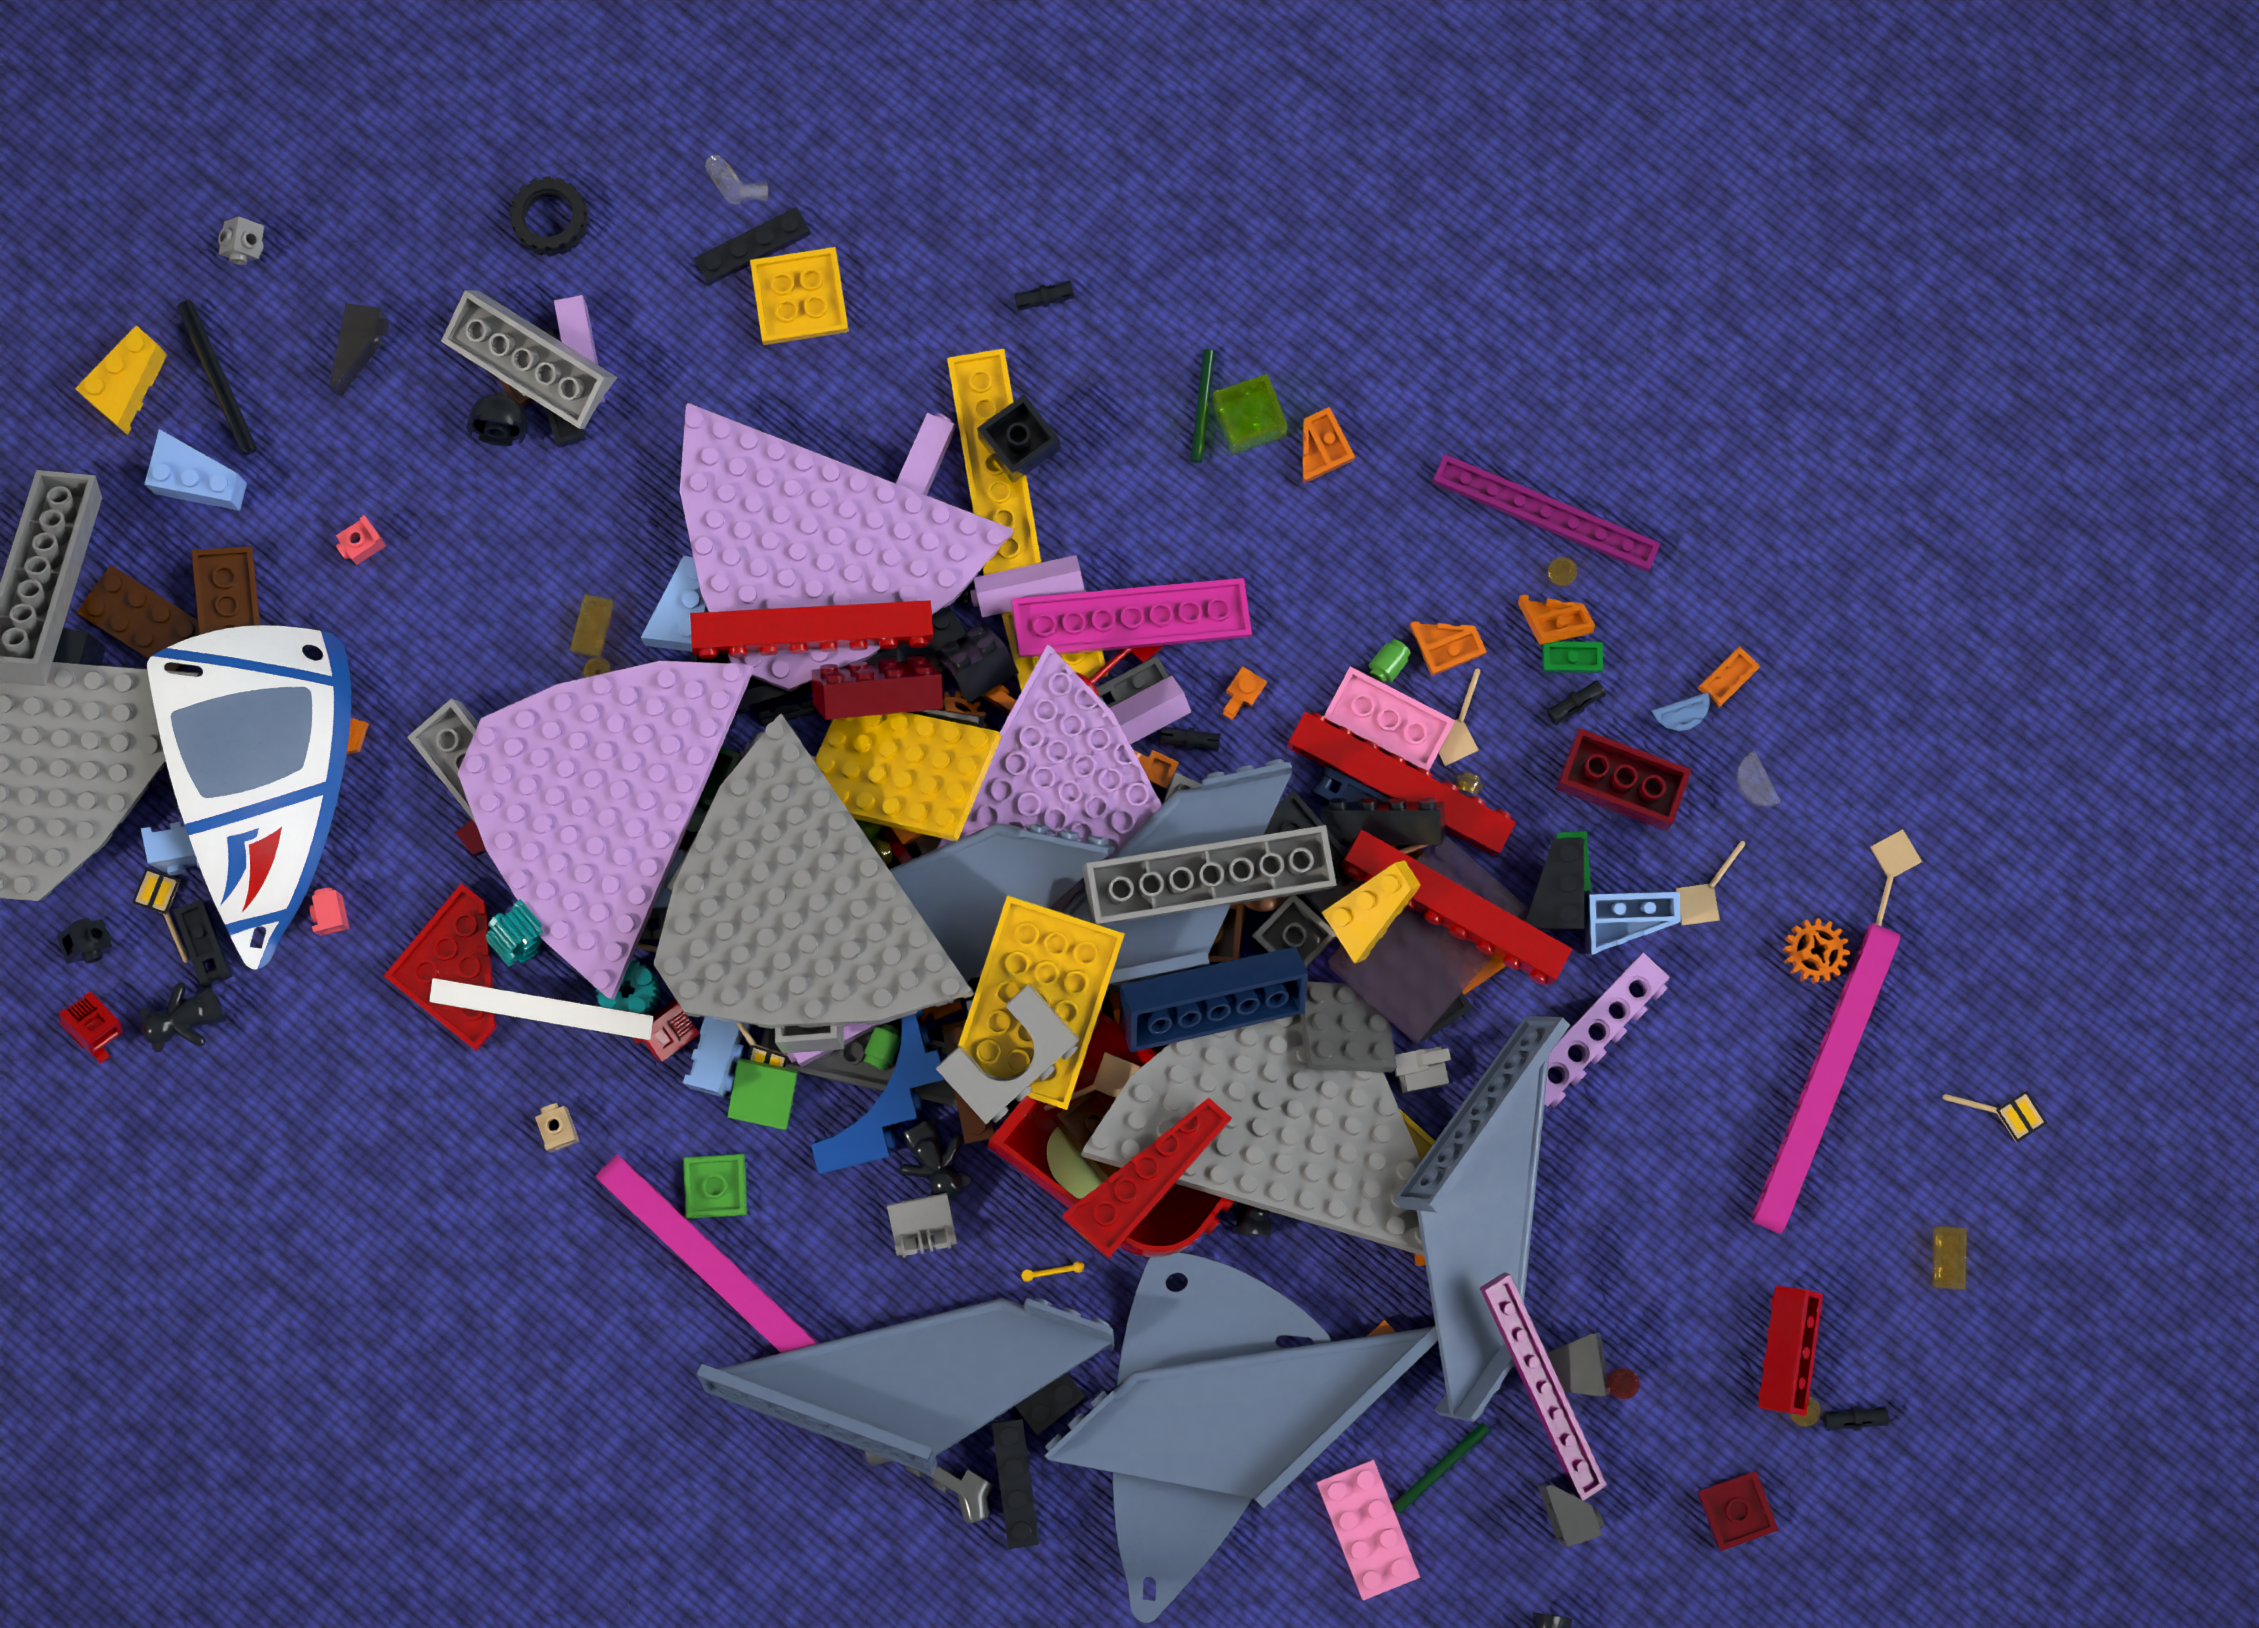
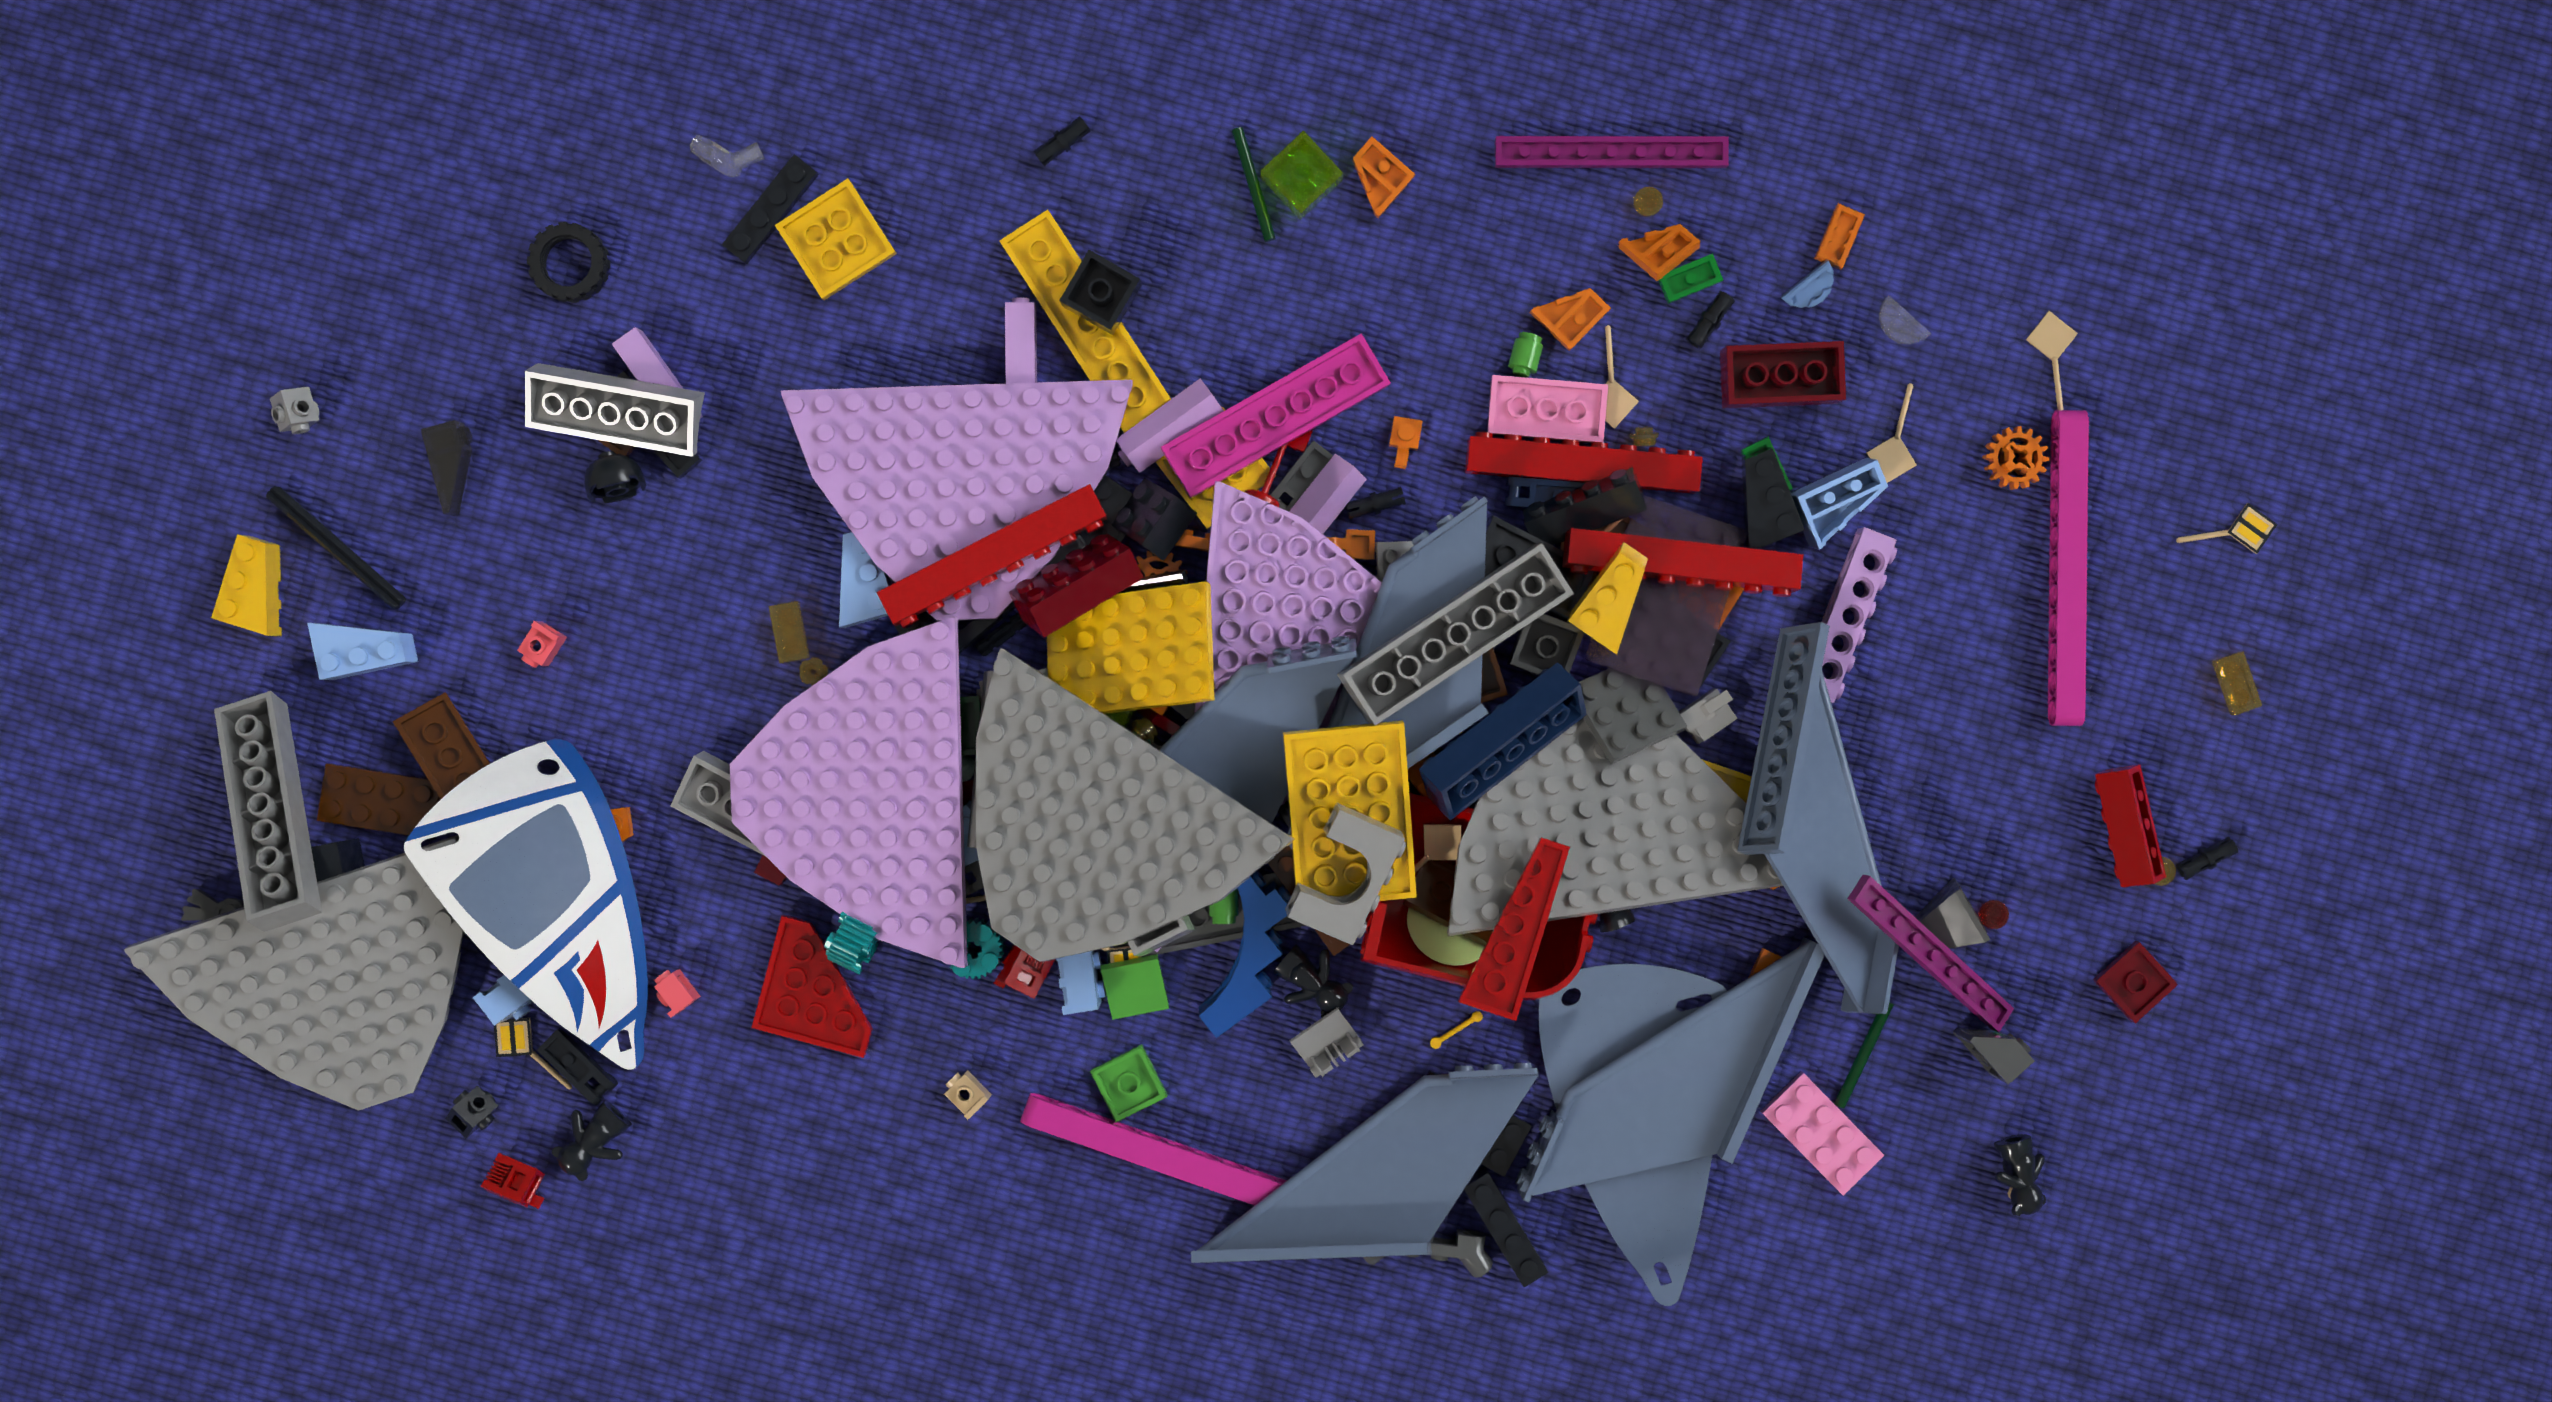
camera: 15 degrees left, 10 degrees up
(541, 1009) = (906, 999): white sticker -> none

